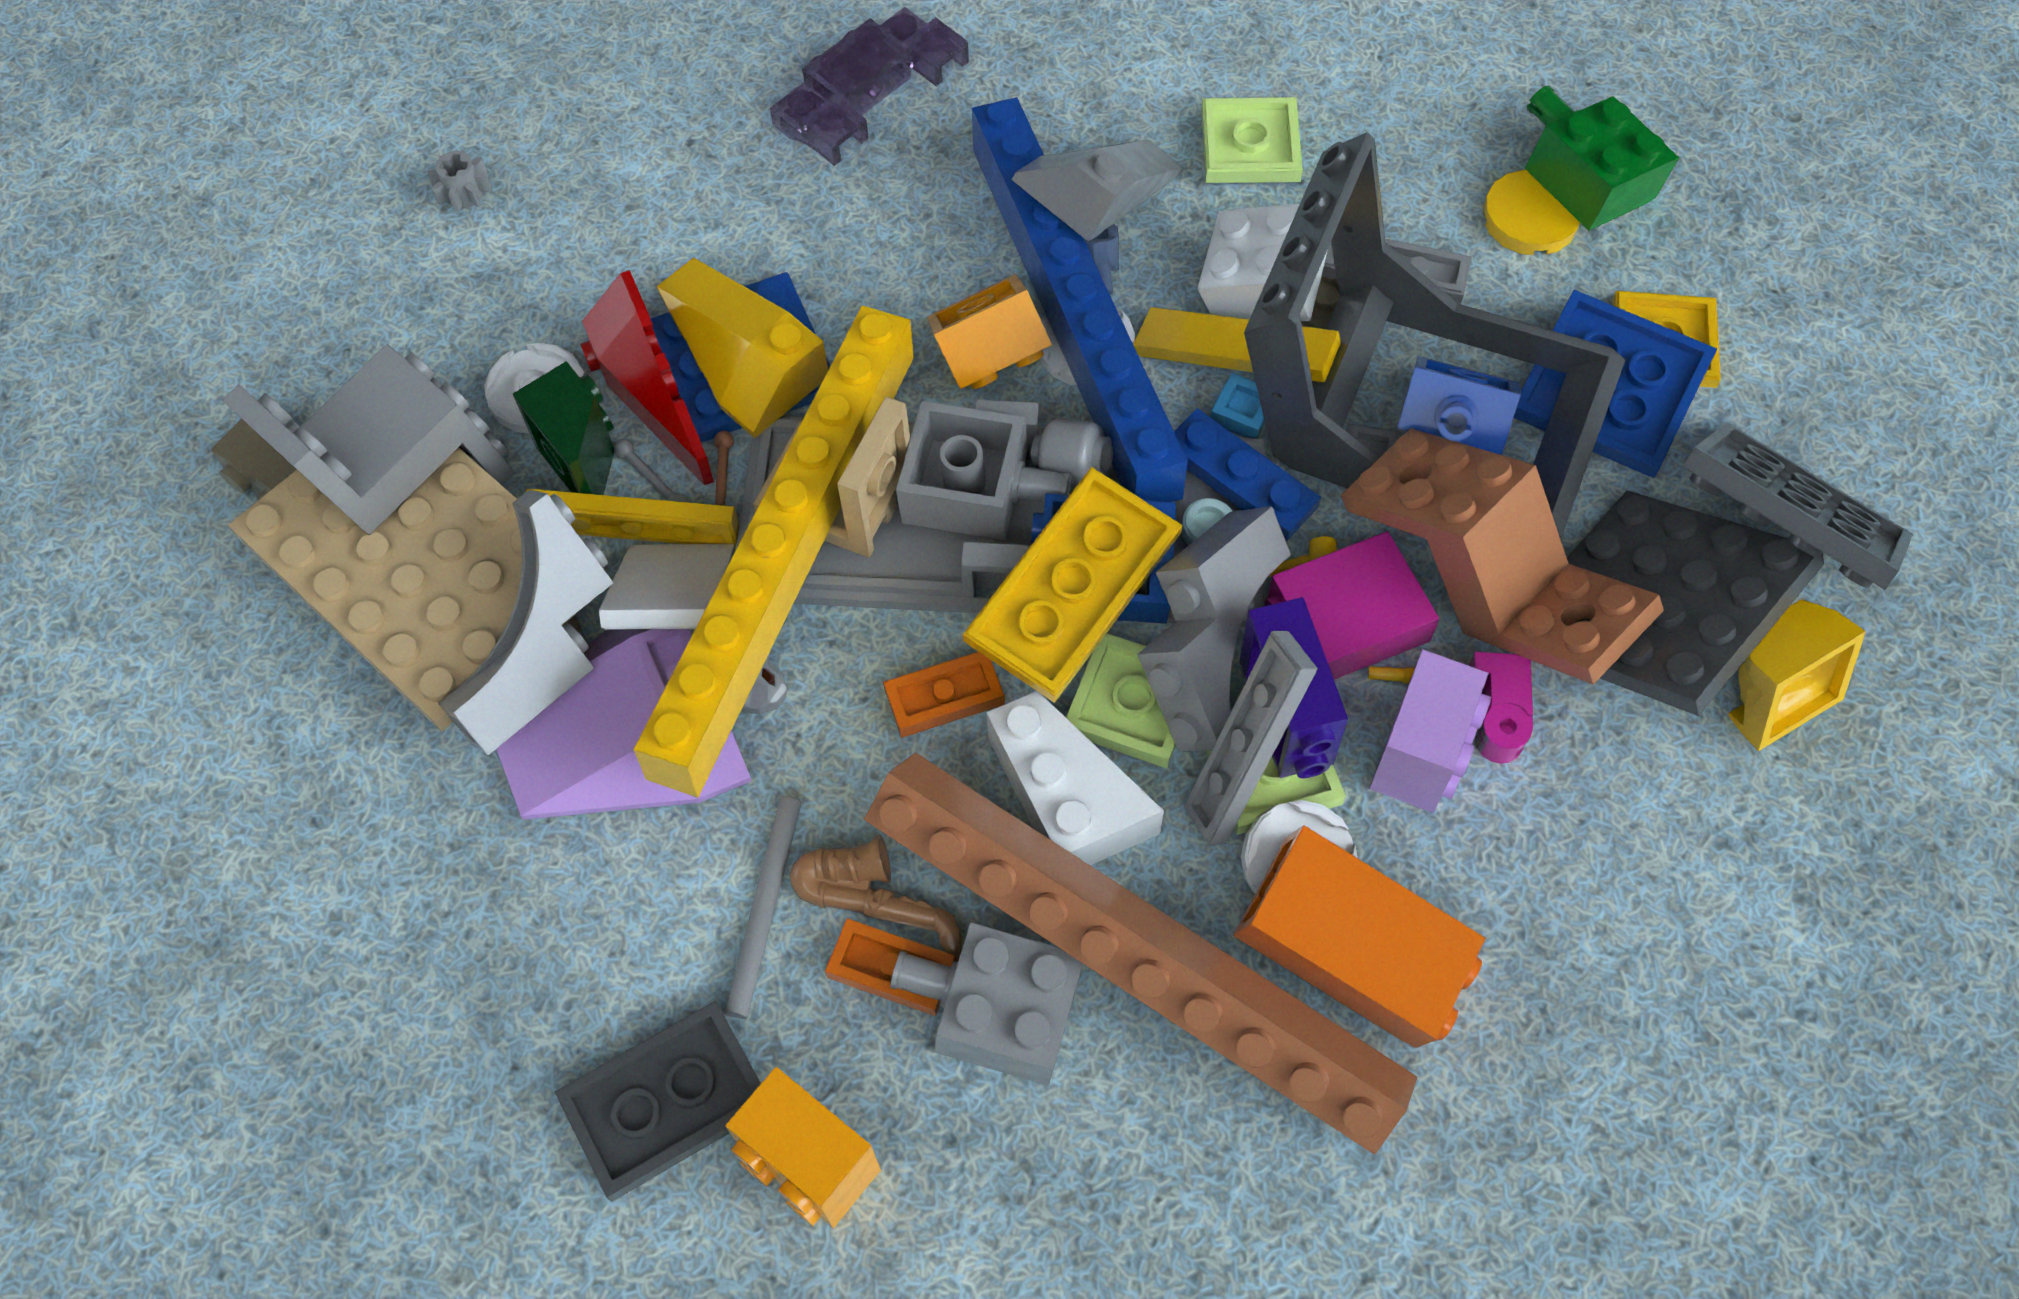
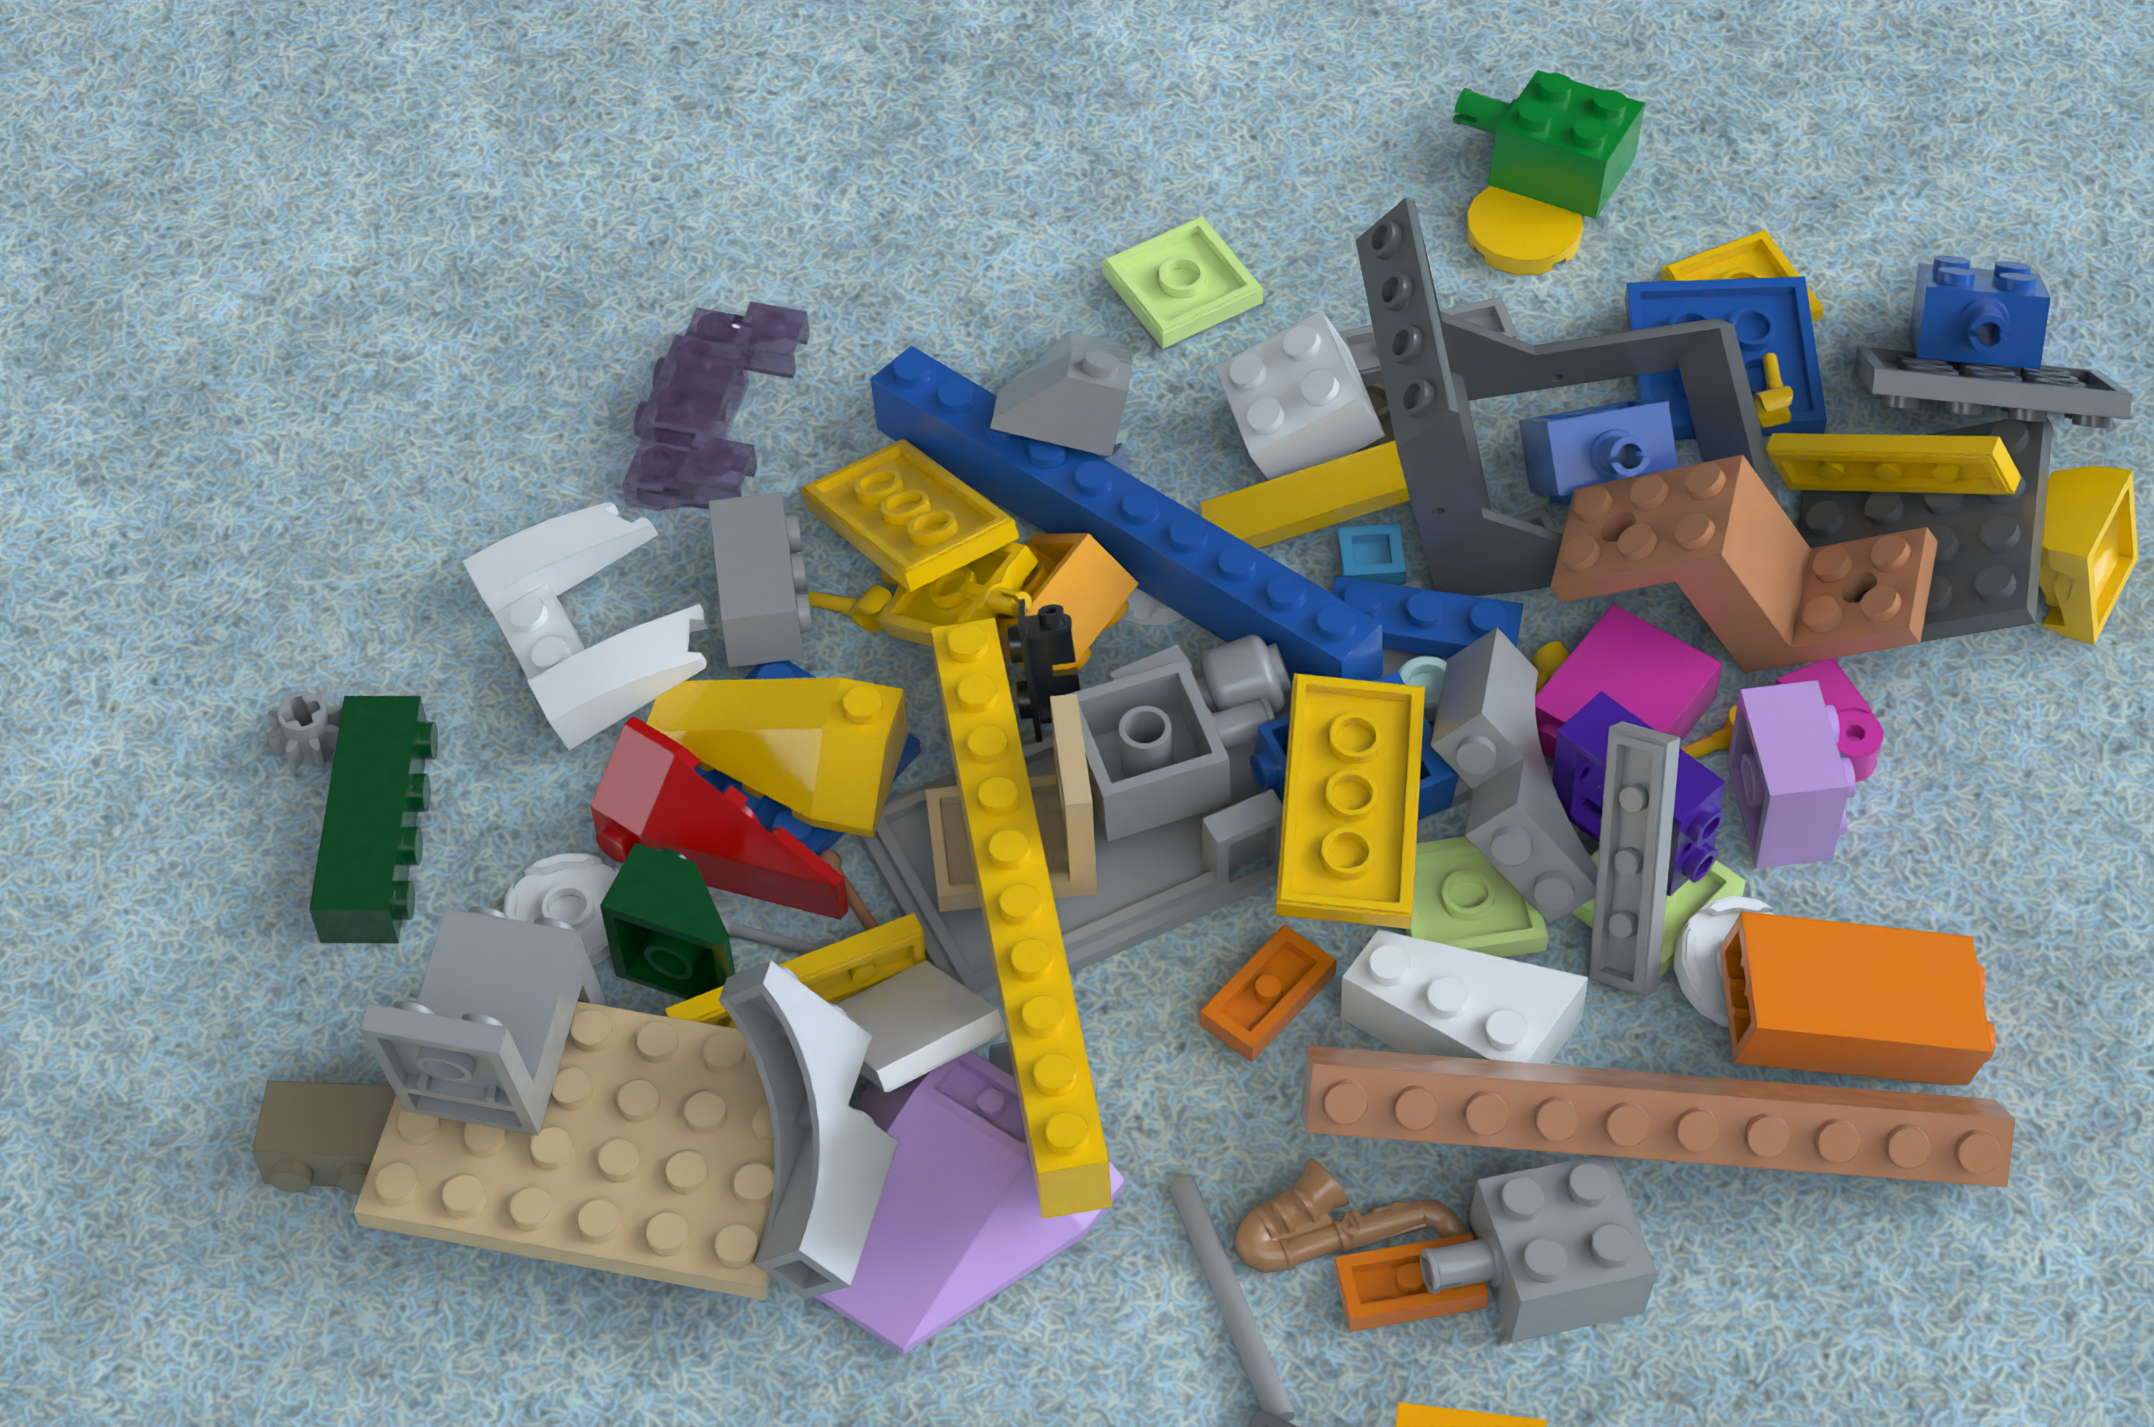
camera: 30 degrees left, 10 degrees down
(453, 261) = (372, 819): none -> dark green brick
(643, 229) = (574, 685): none -> white wedge
(804, 216) = (759, 579): none -> light grey brick
(873, 274) = (862, 610): none -> yellow hand
(930, 287) = (965, 595): none -> yellow plate
(932, 219) = (909, 514): none -> yellow tile
(938, 354) = (1040, 644): none -> black hinge
(1621, 436) = (1774, 401): none -> yellow hand
(1675, 531) = (1894, 463): none -> yellow tile
(1835, 442) = (1979, 313): none -> blue brick

